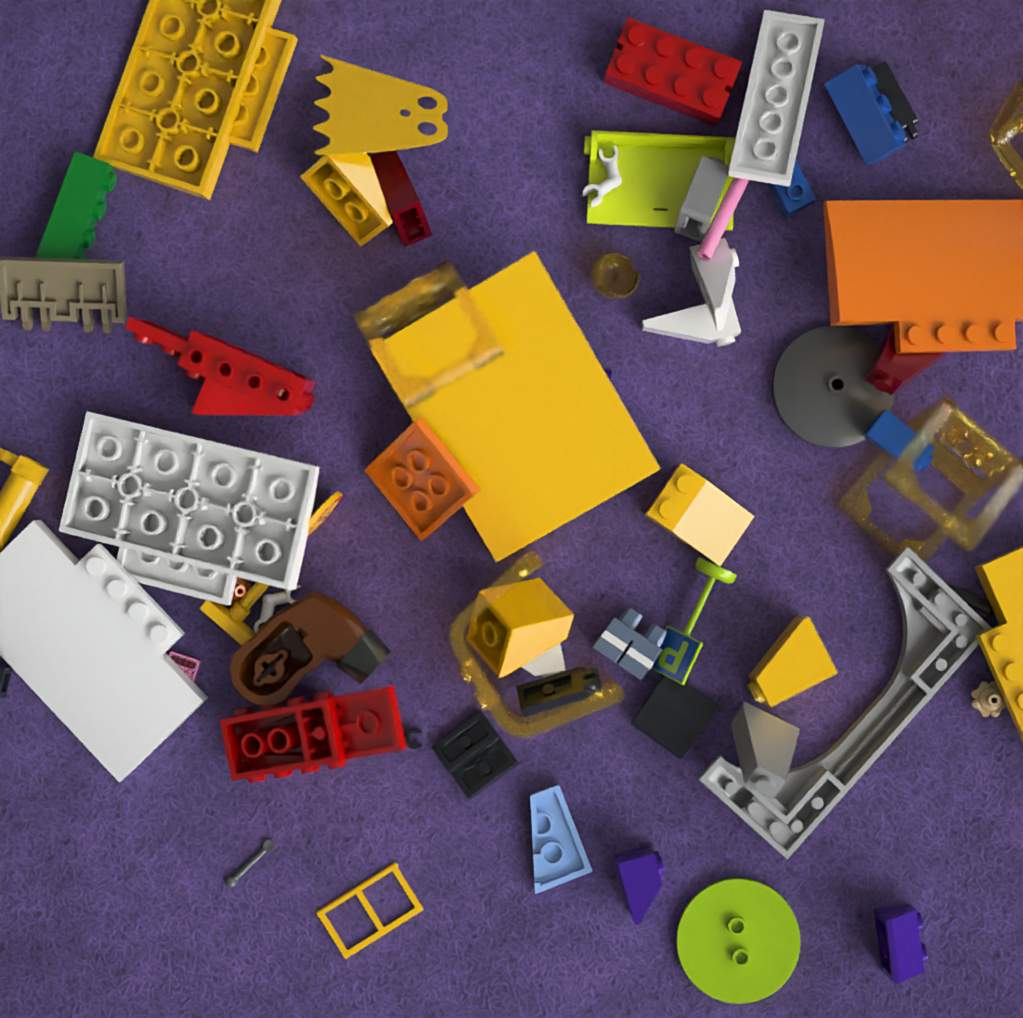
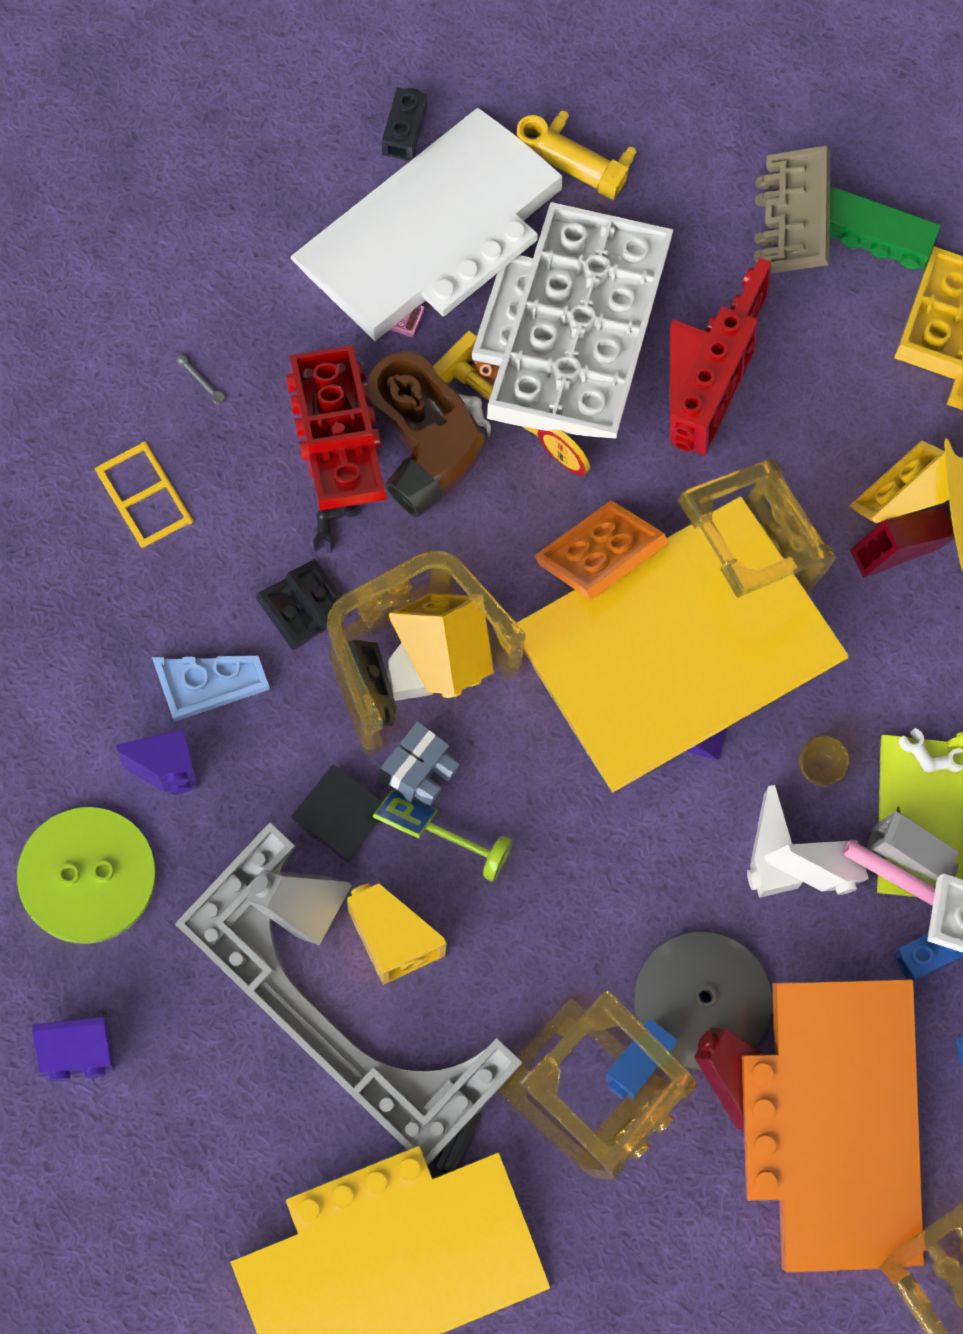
camera: 85 degrees right, 15 degrees down
(699, 514) = (560, 844): yellow slope -> none
(988, 699) = (342, 1162): tan plant -> none

